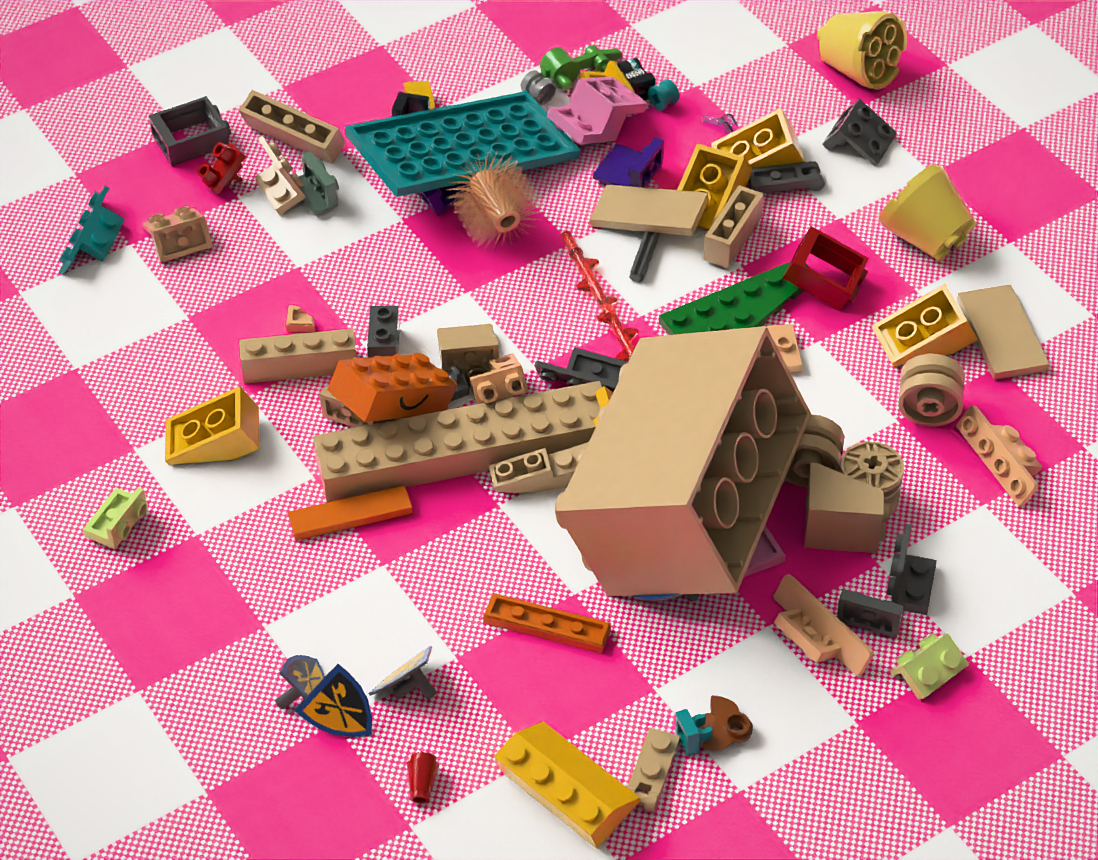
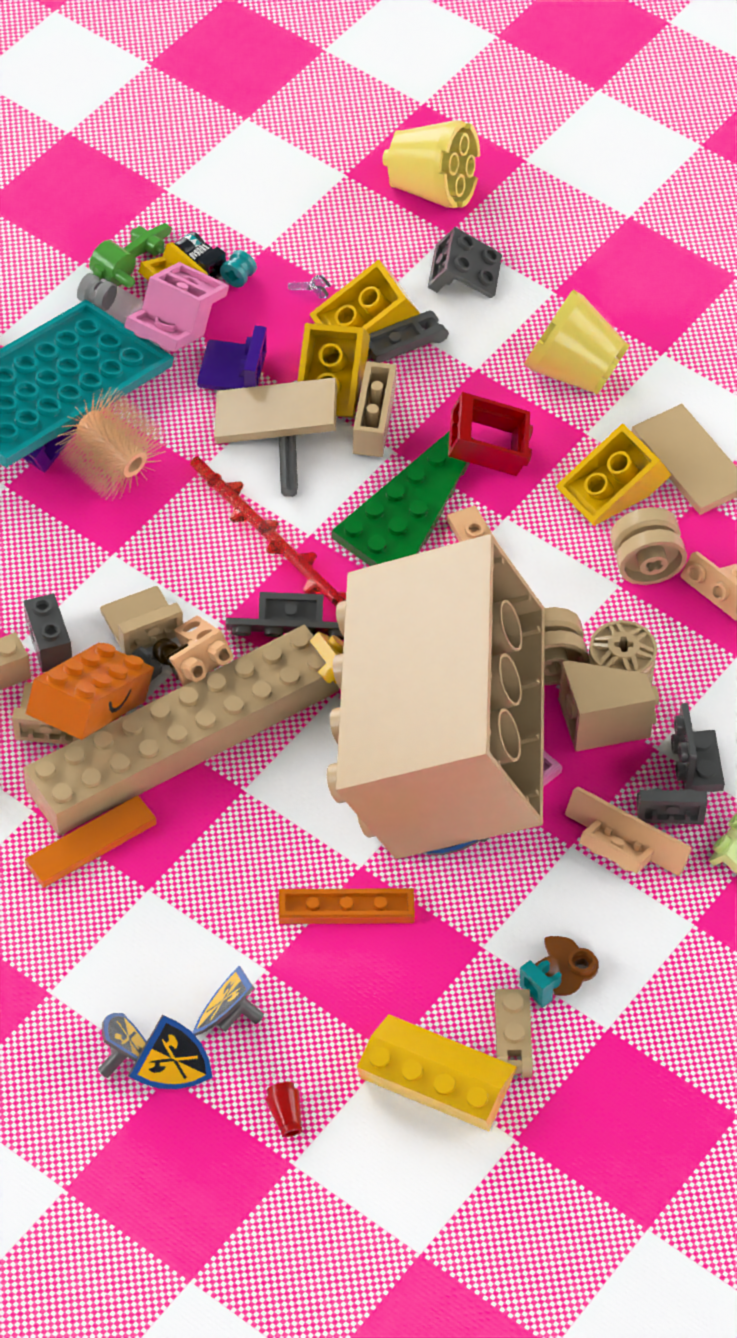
camera: 20 degrees left, 5 degrees up
(535, 471) = (284, 738): tan slope -> none

